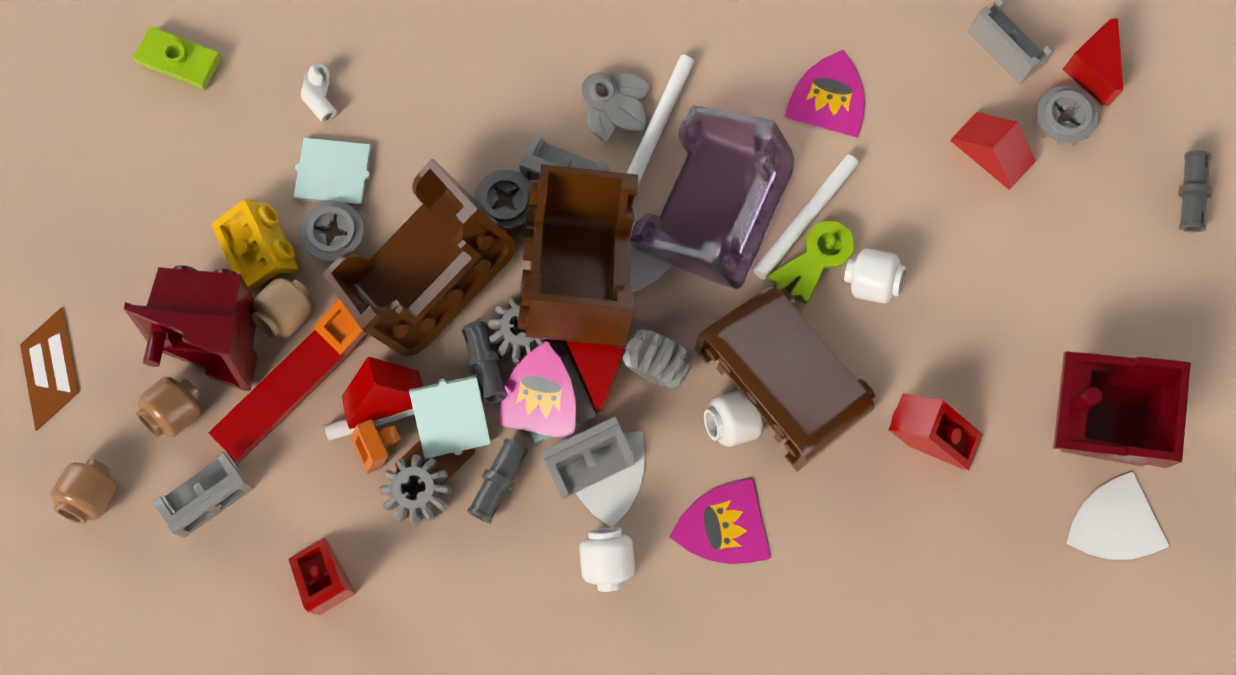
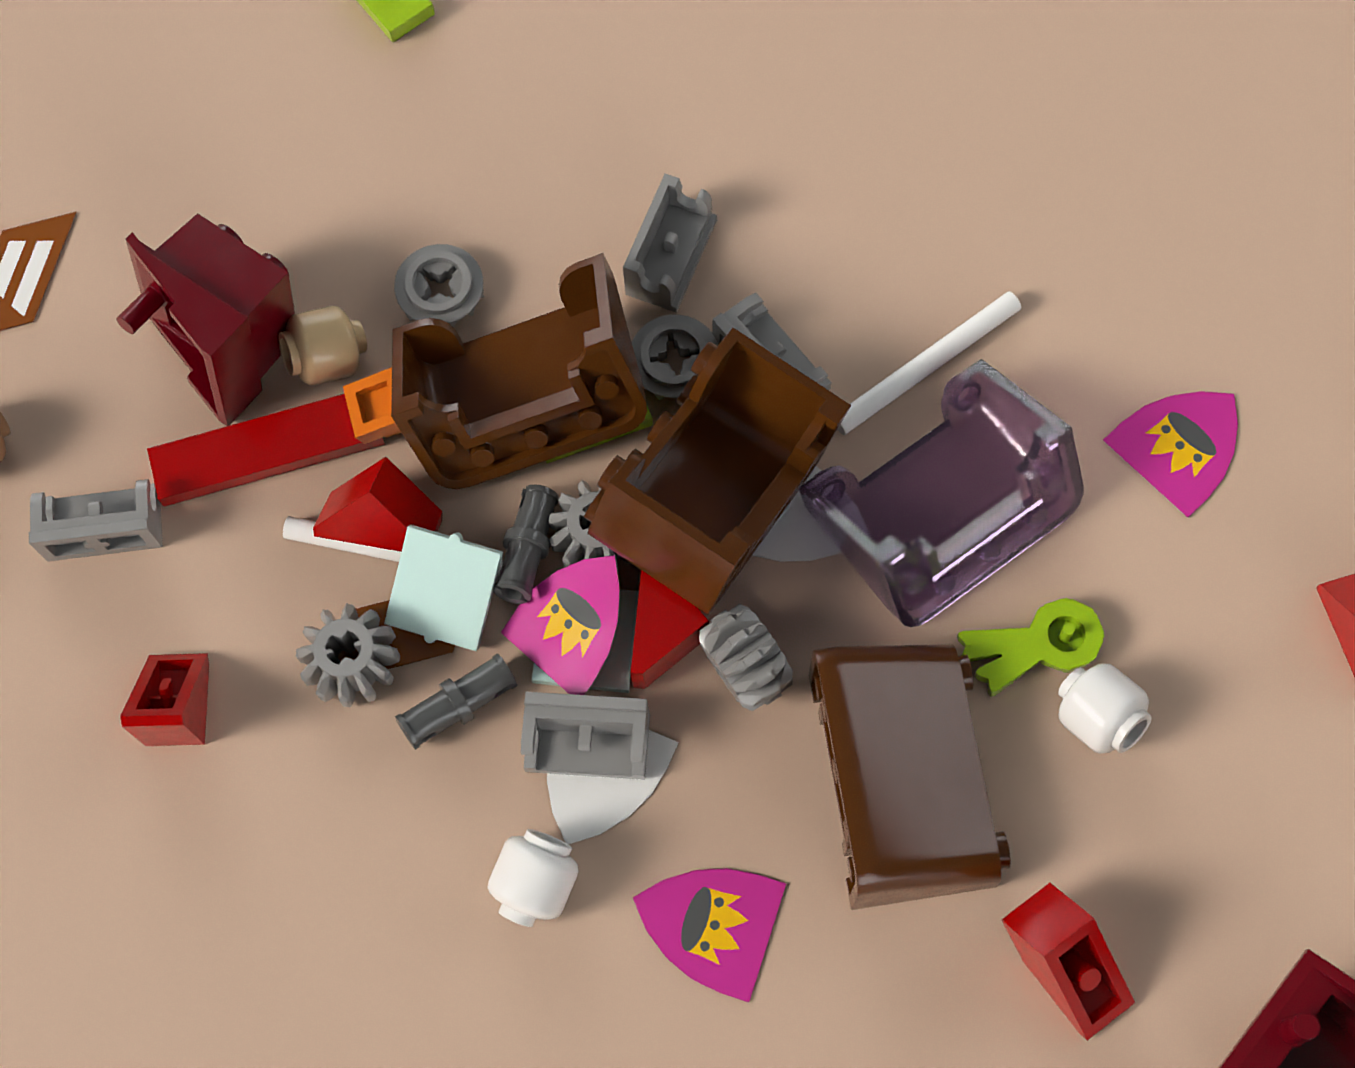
camera: 35 degrees right, 5 degrees down
(169, 406) = (120, 392): medium nougat head -> none
(254, 243) = (338, 252): yellow bracket -> none
(315, 90) = (519, 108): white arm -> none
(332, 171) = (484, 215): light aqua piece -> none
(373, 445) = (333, 572): orange tile -> none
(462, 132) = (668, 245): none -> light grey hinge
(620, 105) = (885, 316): light grey plate -> none
(733, 419) = (800, 791): white head -> none
(805, 217) = (1056, 582): white bar -> none

